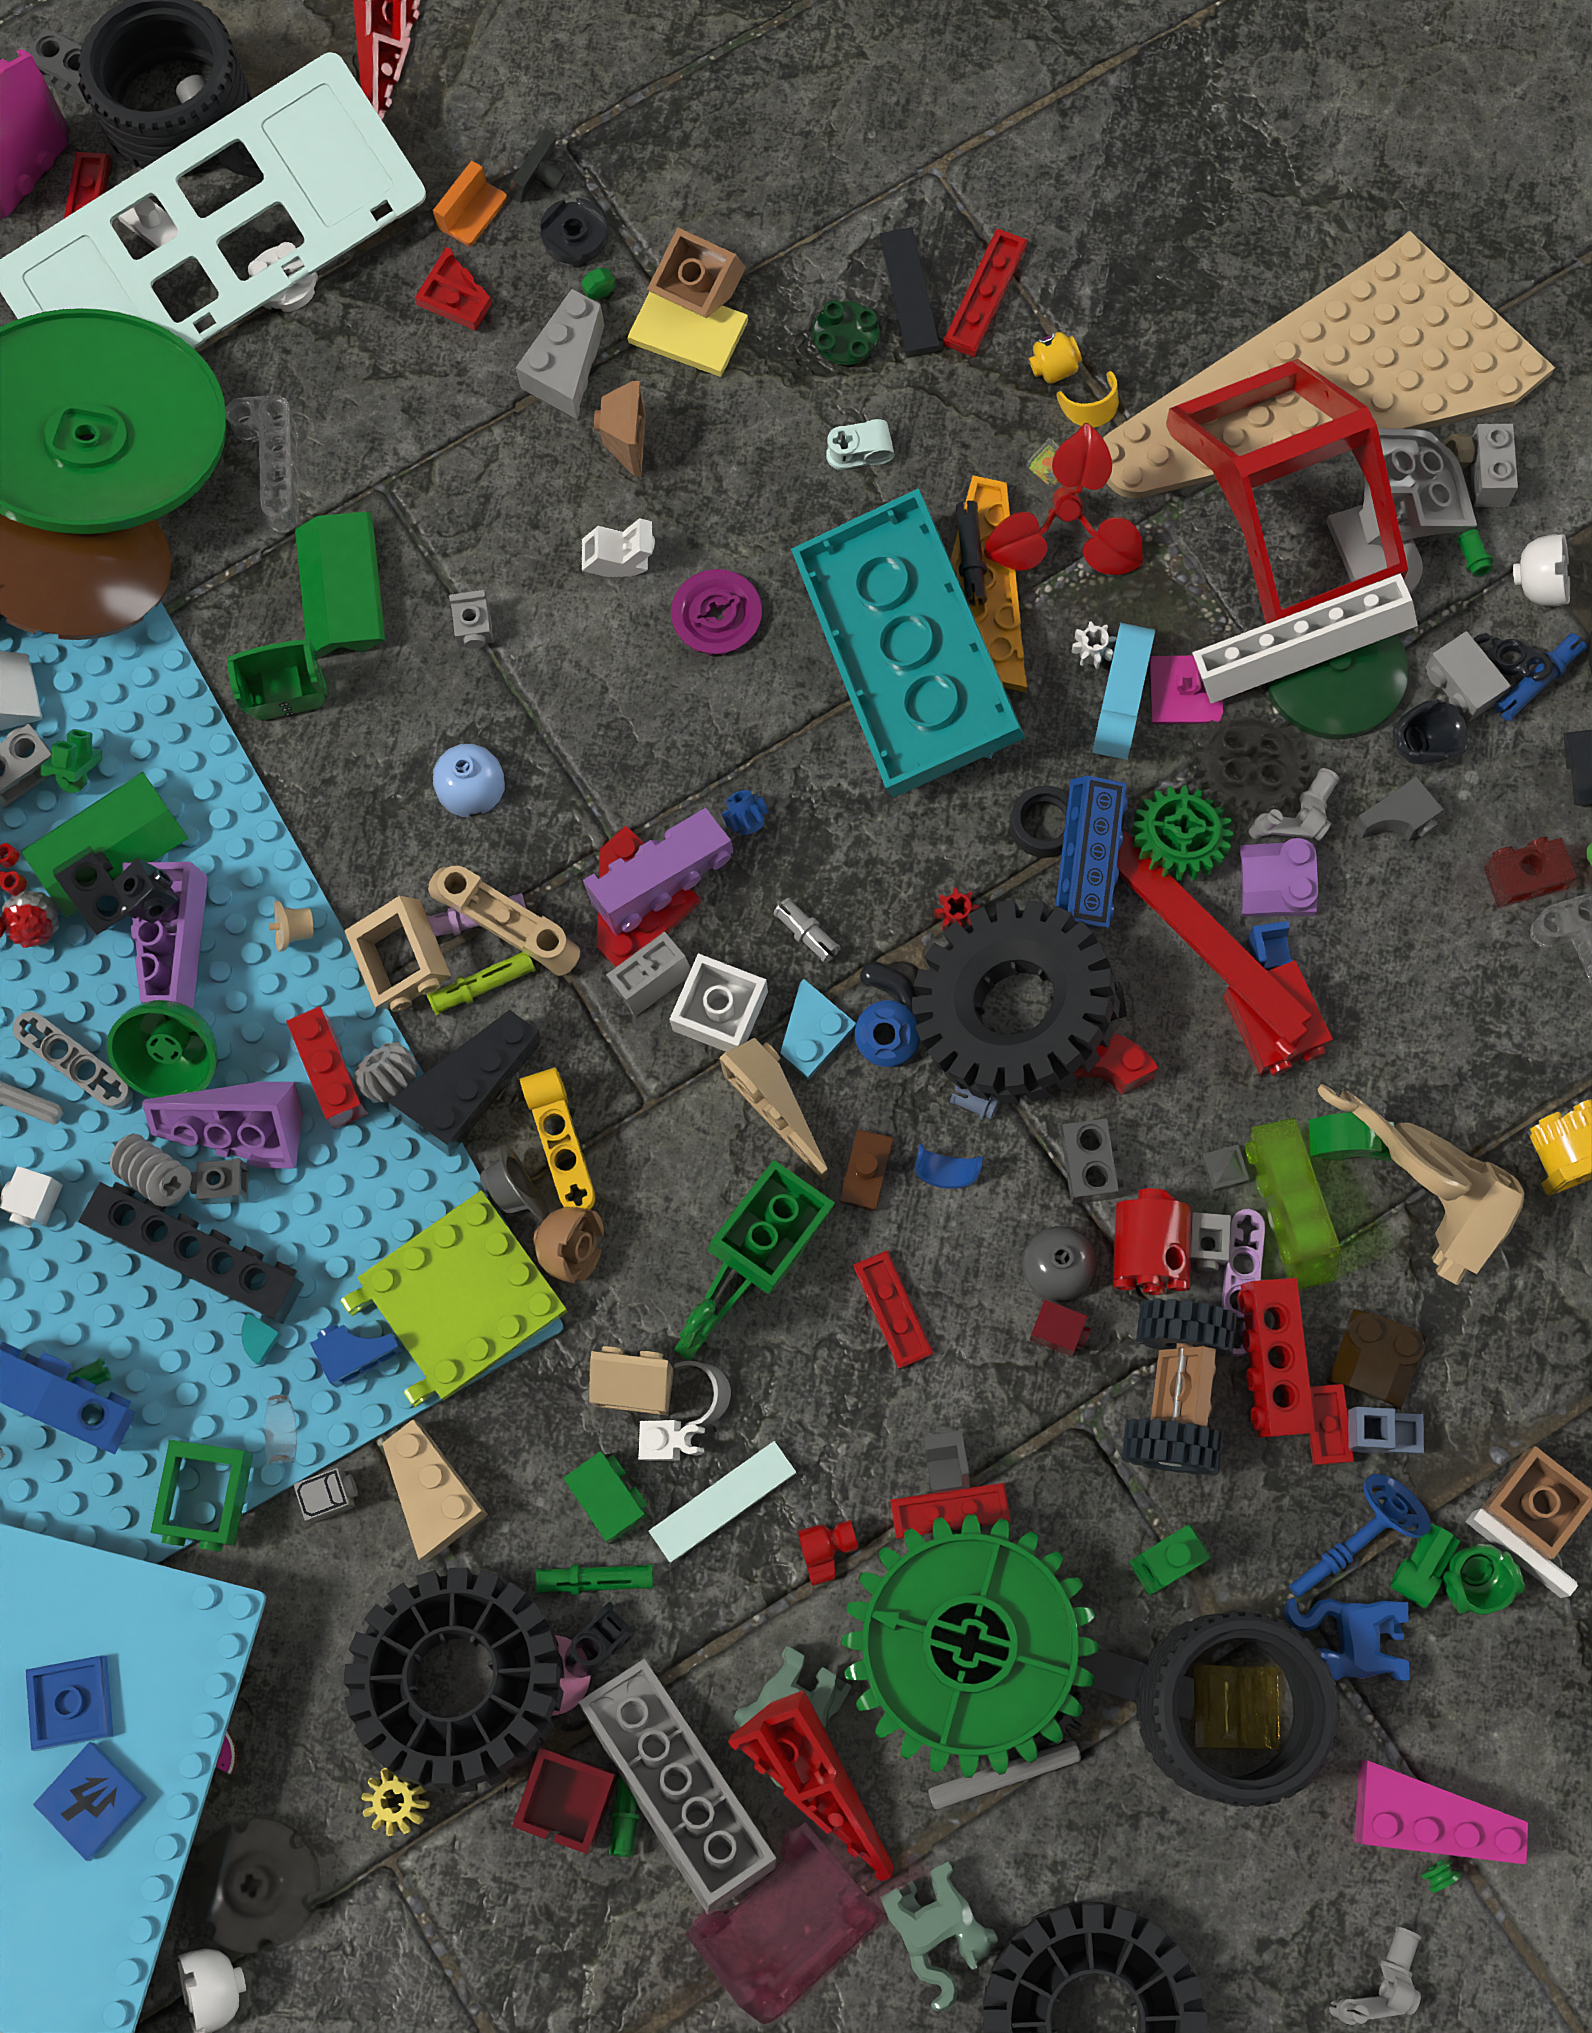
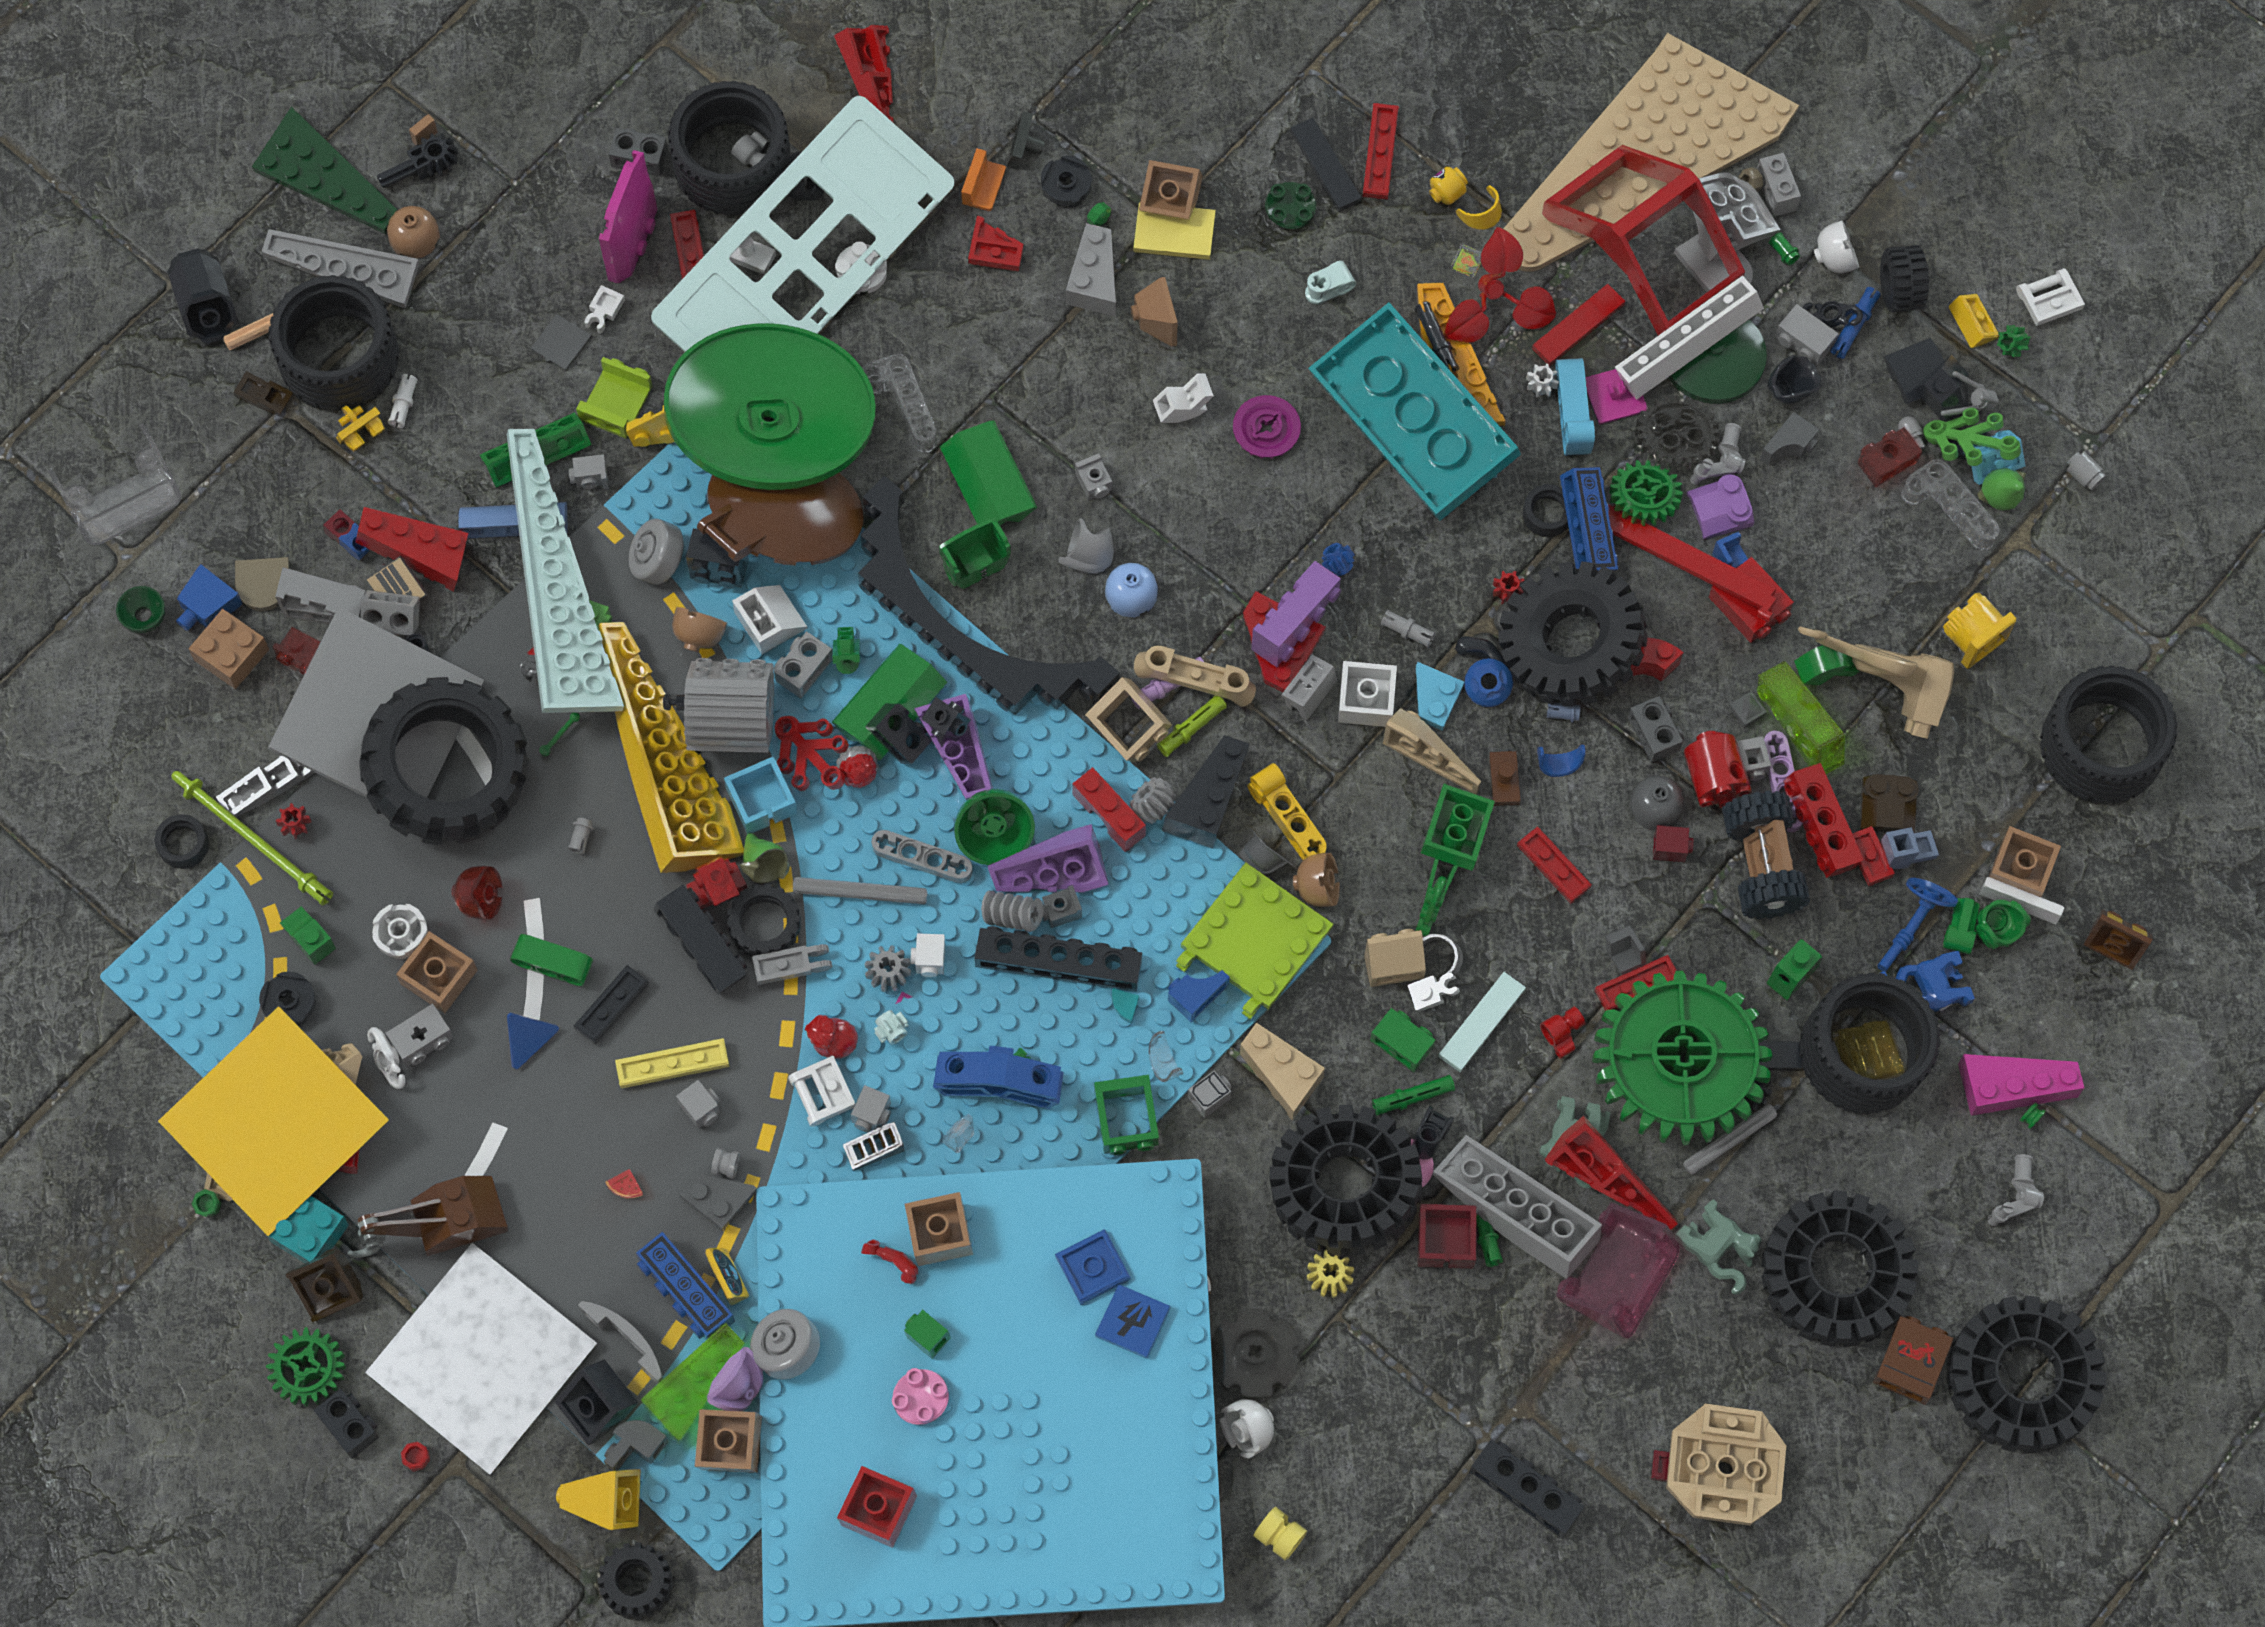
camera: 25 degrees left, 5 degrees down
(167, 687) = (1003, 676): none -> black arch
(291, 925) = (1045, 721): tan piece -> none
(431, 715) = (1089, 551): none -> light grey piece
(1167, 583) = (1578, 324): none -> red tile
(1574, 843) = (1913, 429): none -> light grey cylinder

